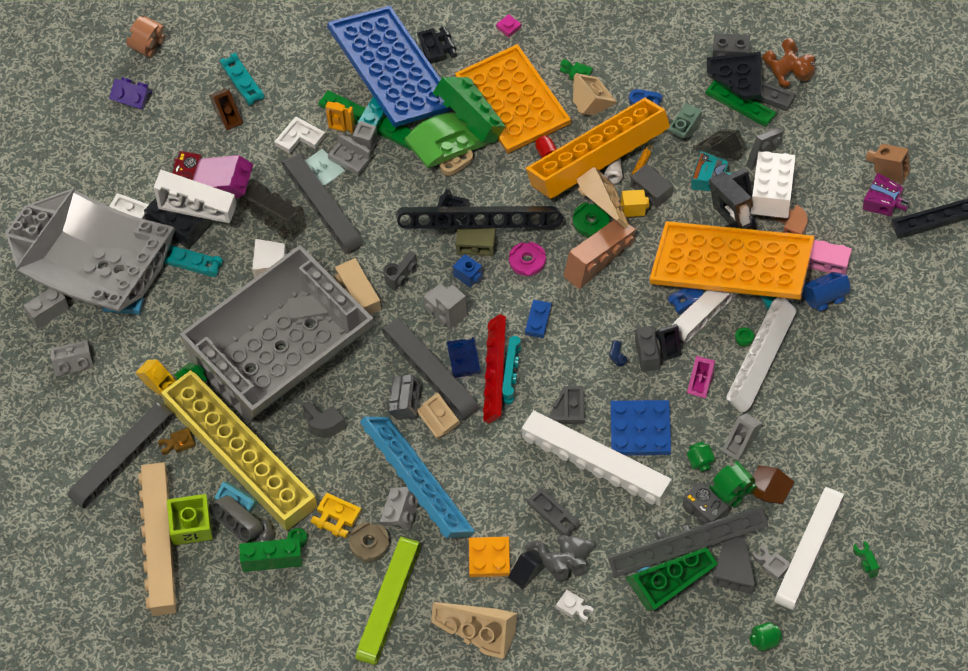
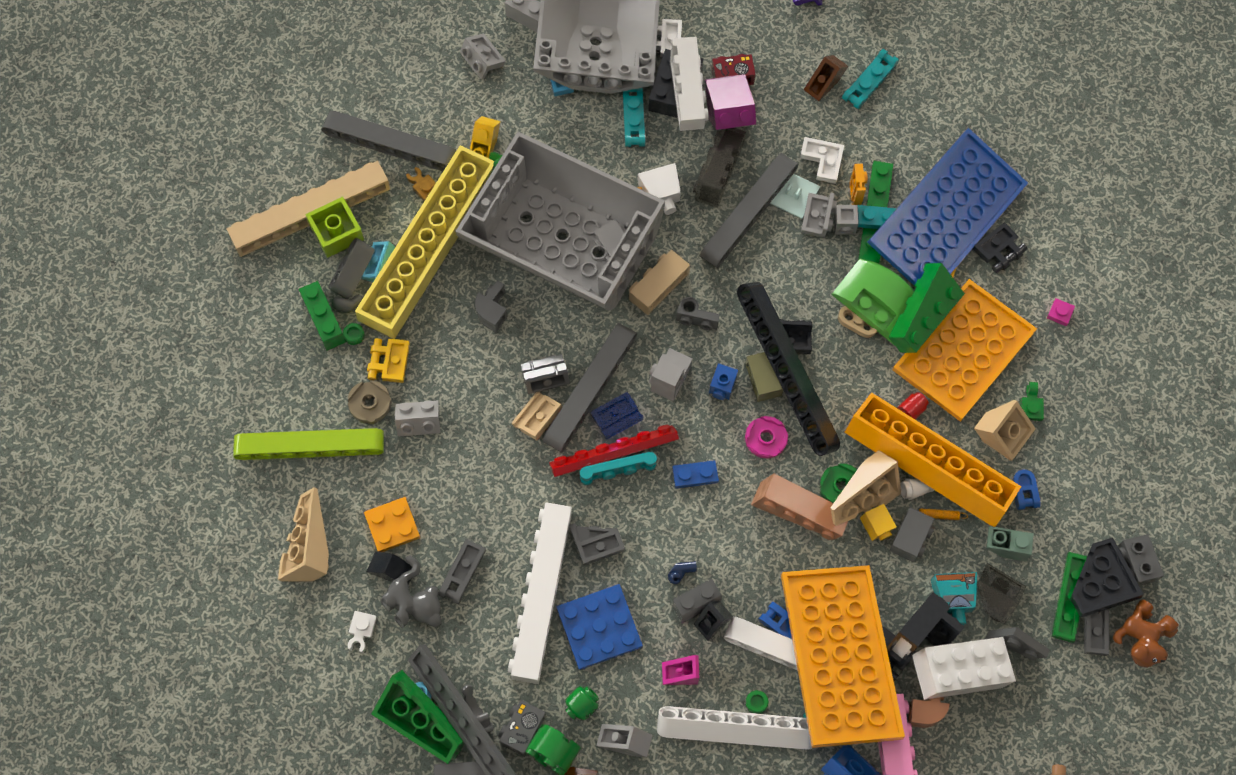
camera: 65 degrees right, 10 degrees up
(417, 477) = (452, 420): dark azure plate -> none

